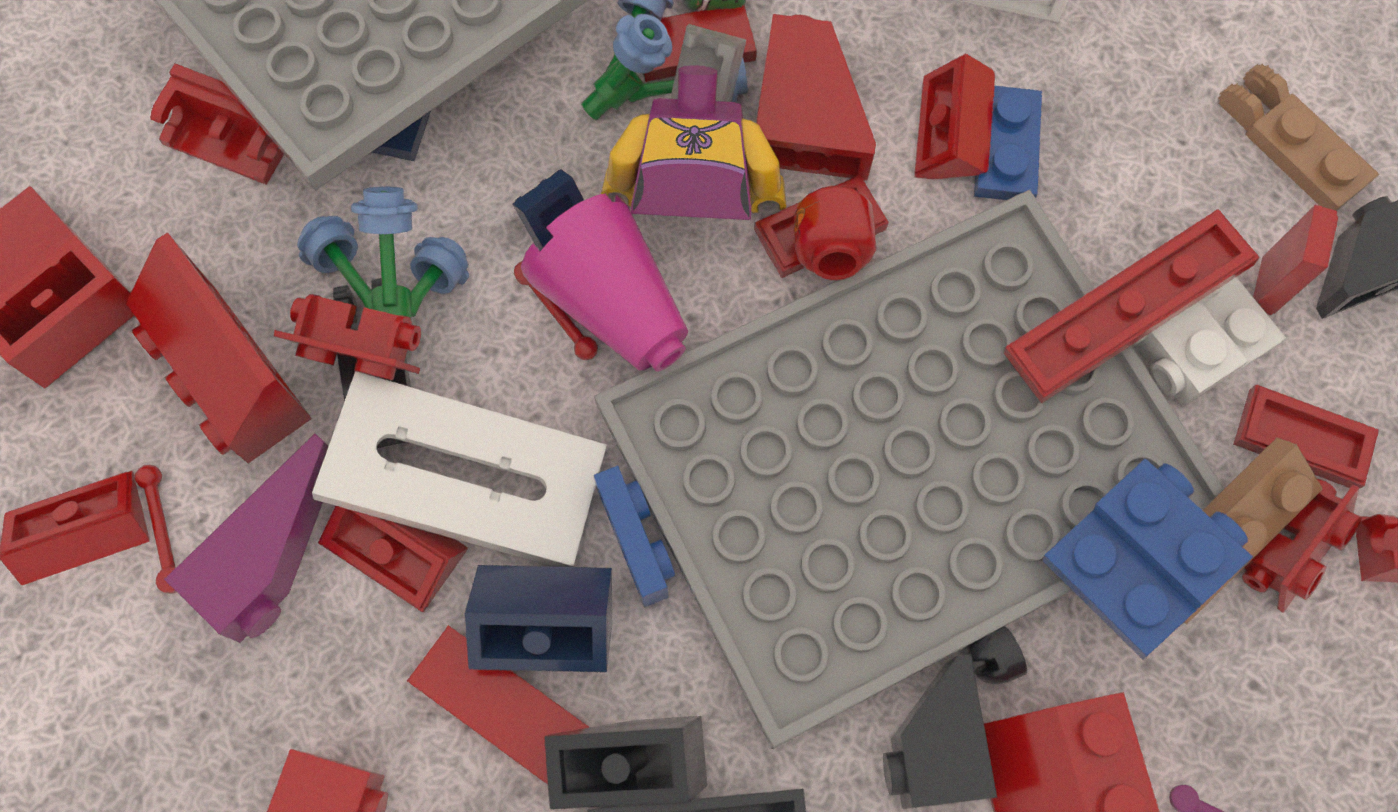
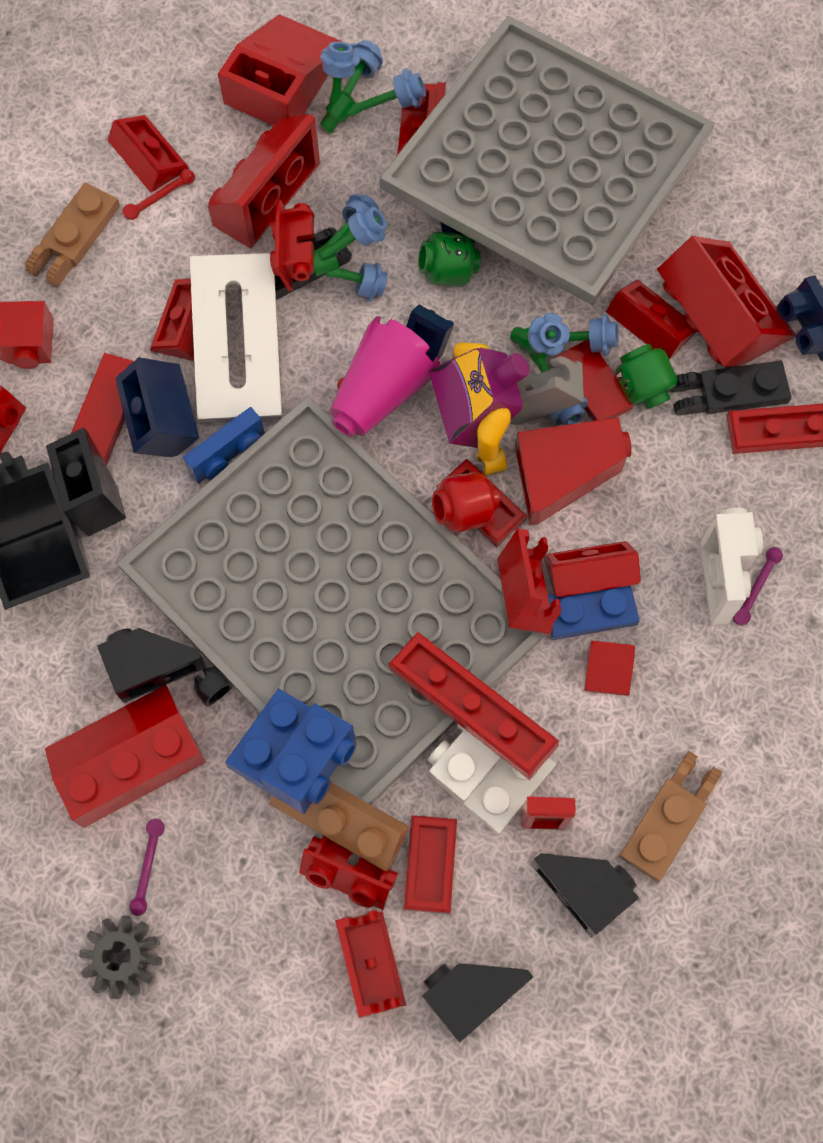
camera: 75 degrees right, 0 degrees up
(80, 177) = (358, 60): none -> medium blue plant
(168, 678) = (73, 233): none -> medium nougat hinge
(256, 552) = (152, 245): magenta slope -> none
(449, 152) = (448, 259): none -> green head
(973, 195) = (525, 585): none -> red hinge
(1092, 145) = (609, 667): none -> red slope

